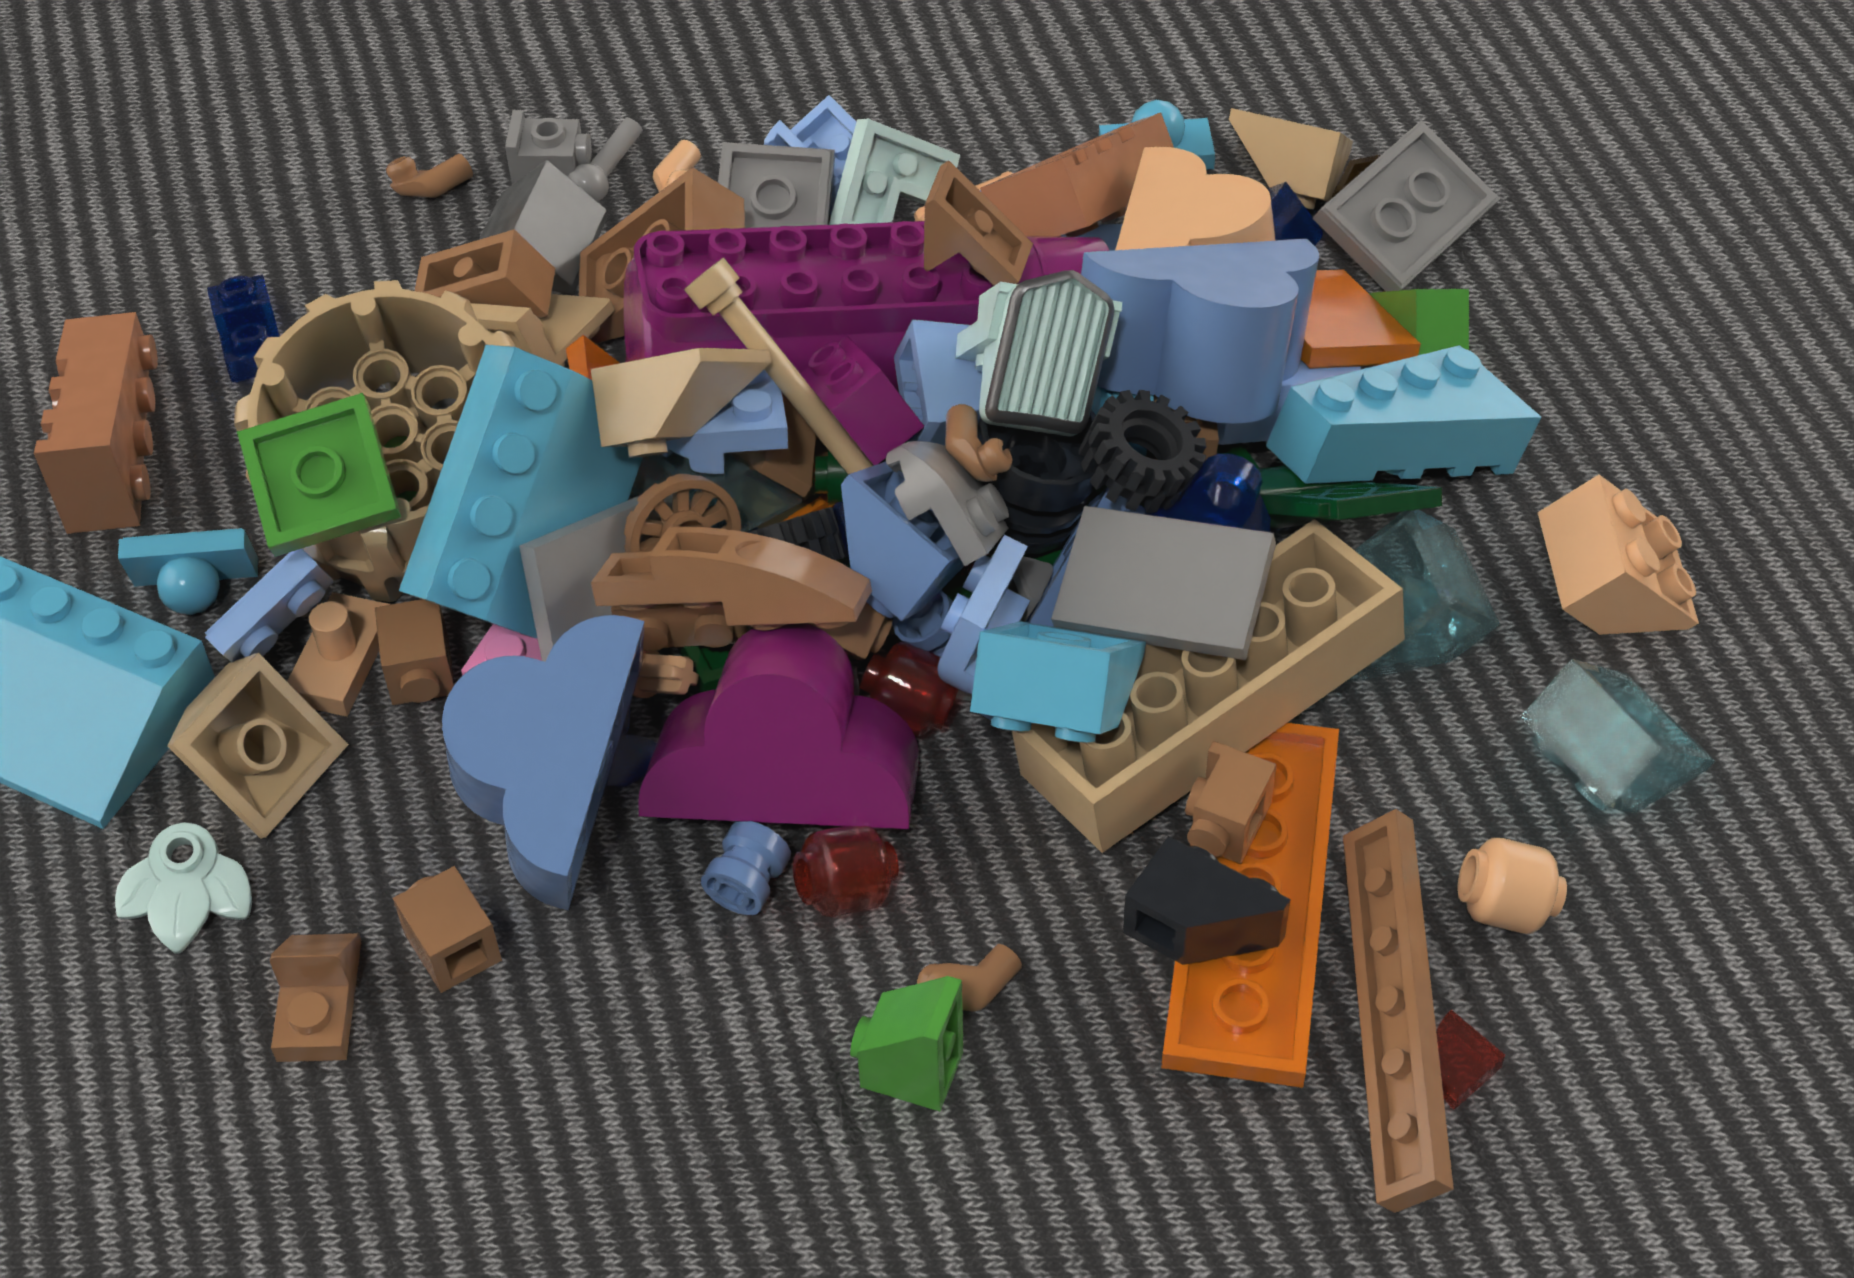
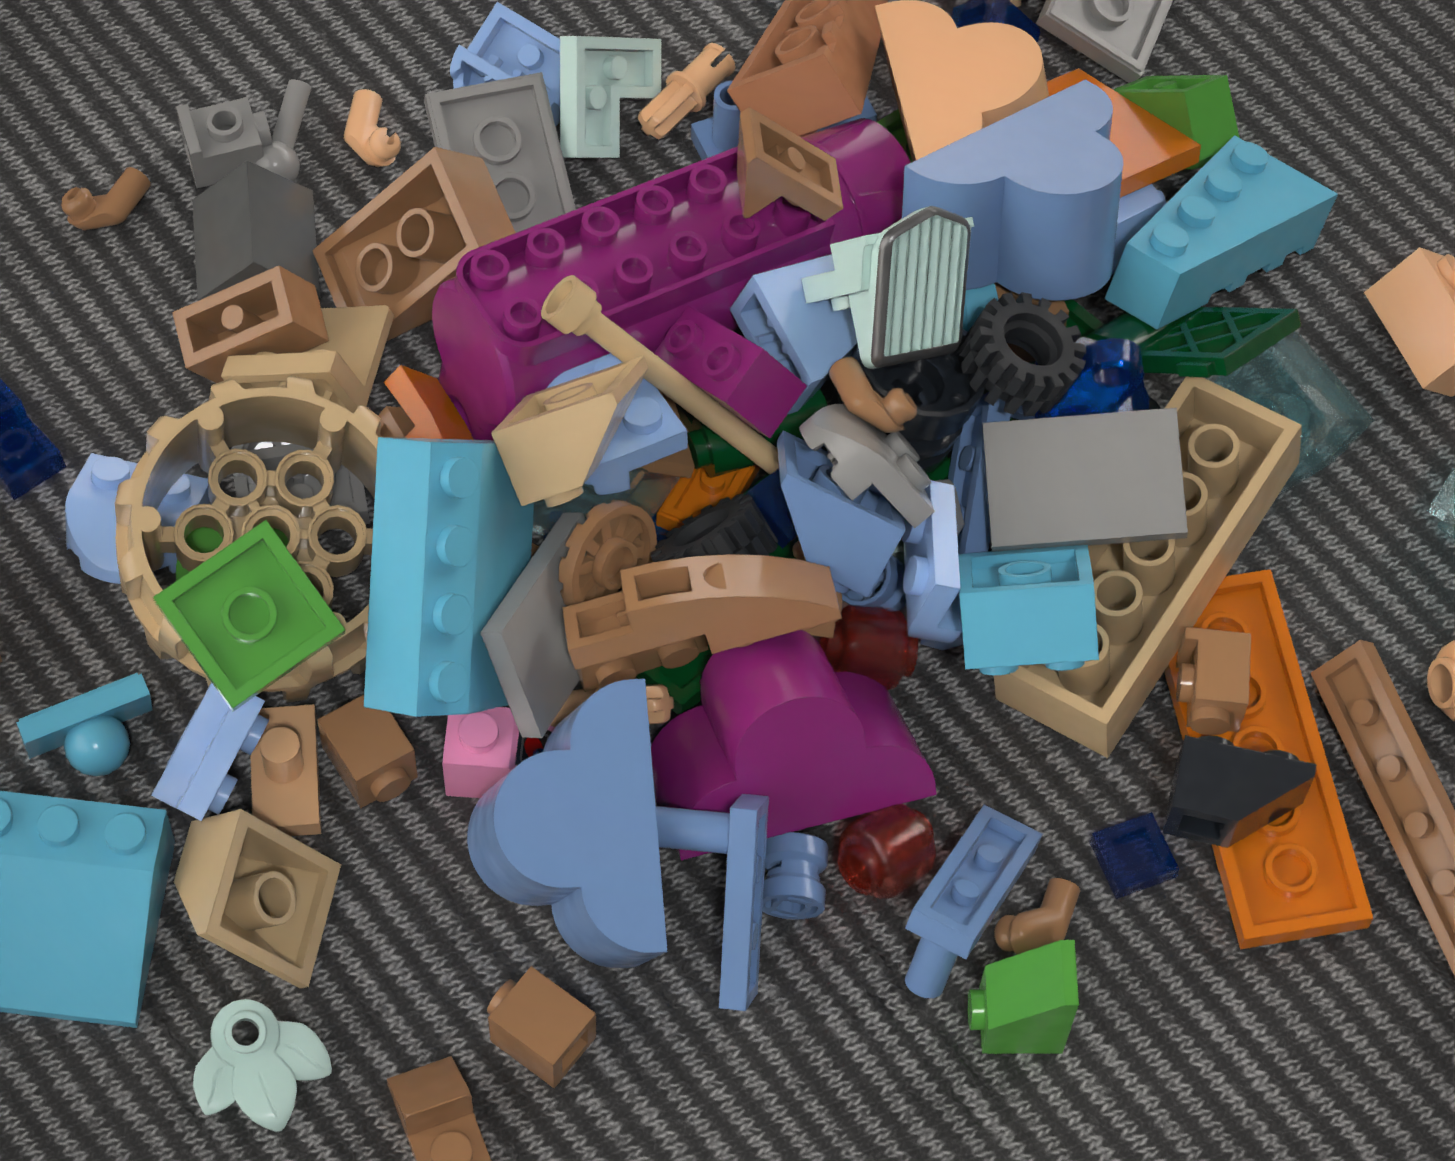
camera: 25 degrees left, 10 degrees up
(688, 807) = (743, 839): none -> medium blue piece
(897, 924) = (966, 896): none -> medium blue piece
(1091, 950) = (1134, 855): none -> clear blue tile

